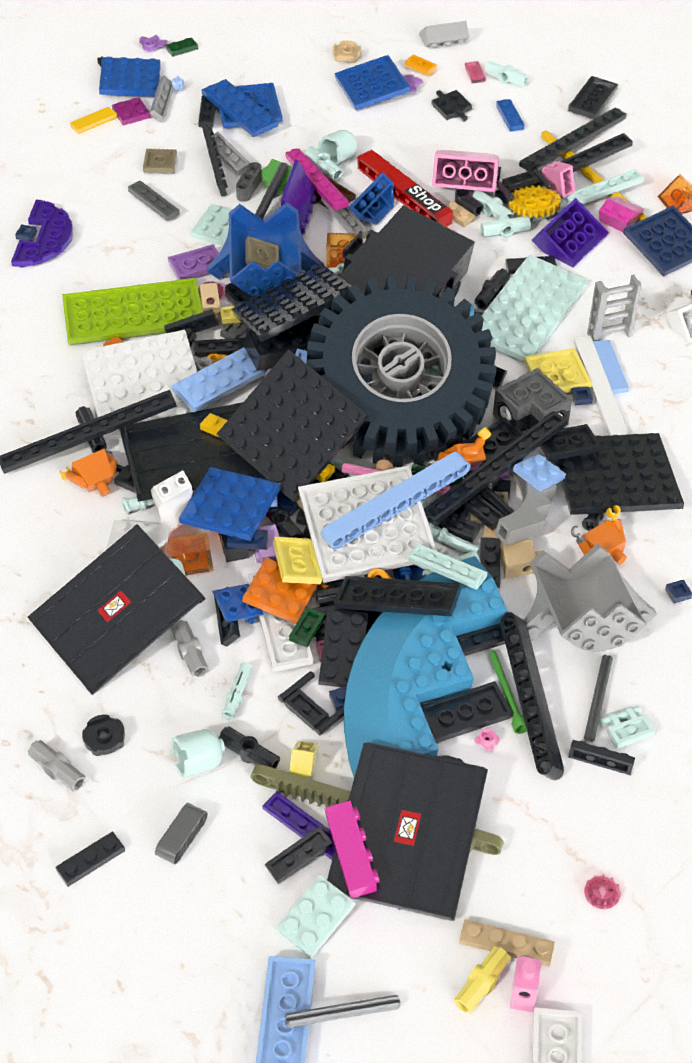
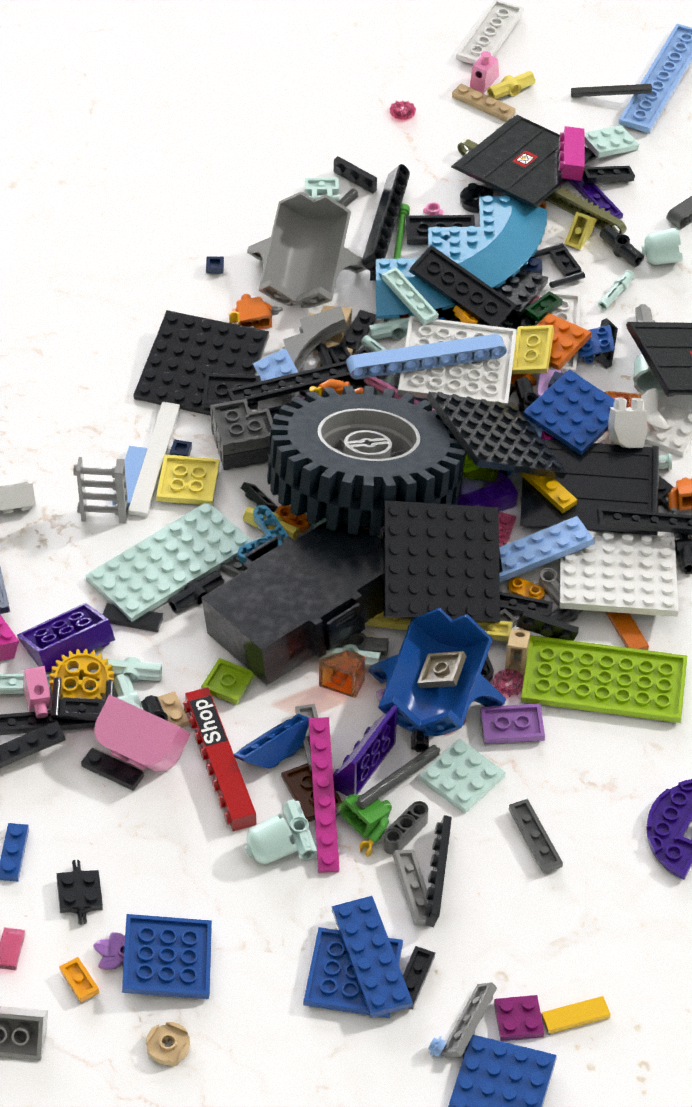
camera: 160 degrees left, 0 degrees up
(160, 161) = (507, 902): dark tan plate -> none

